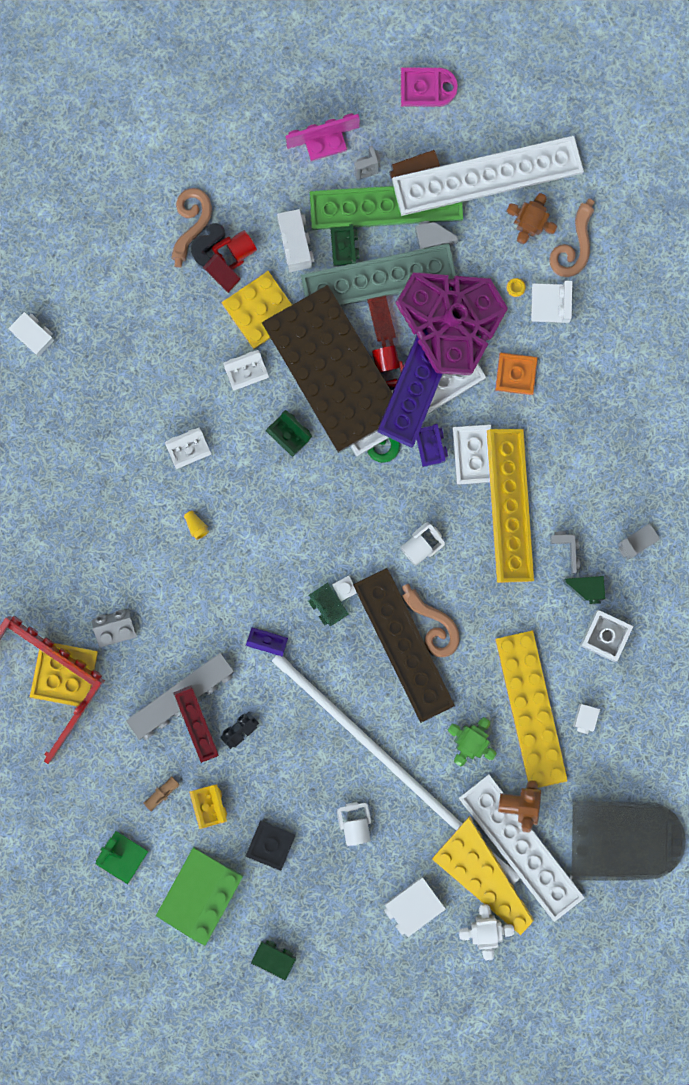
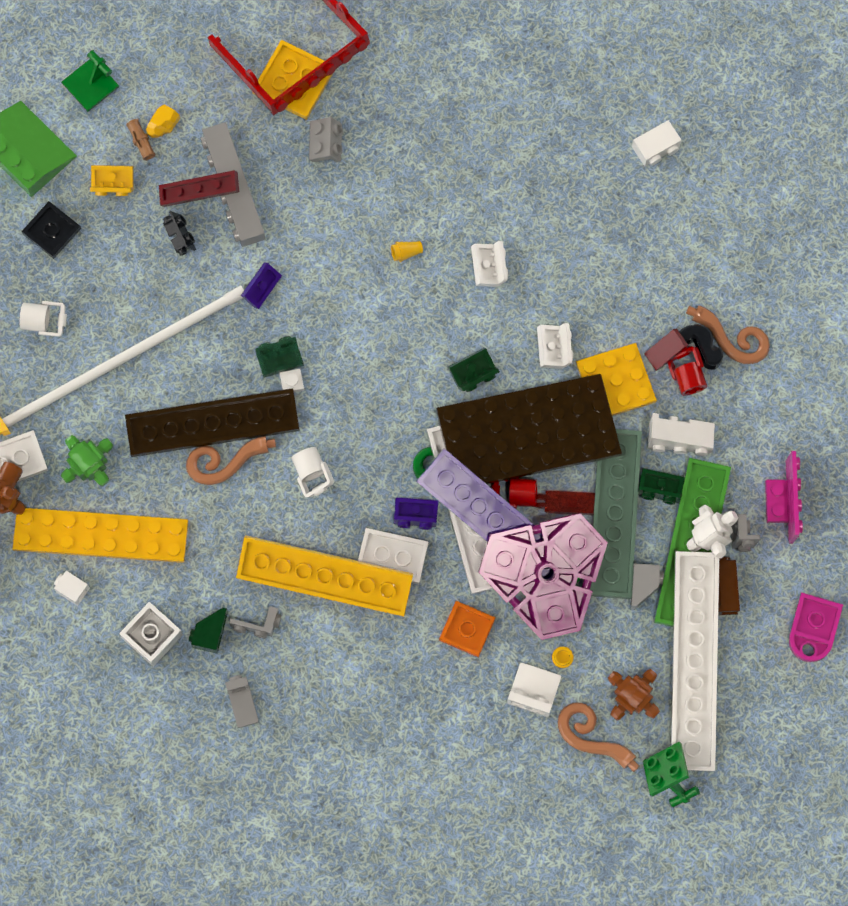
camera: 110 degrees right, 10 degrees down
(140, 778) = (162, 121): none -> yellow rock
(376, 188) = (712, 531): none -> white piece
(589, 172) = (666, 771): none -> green plate

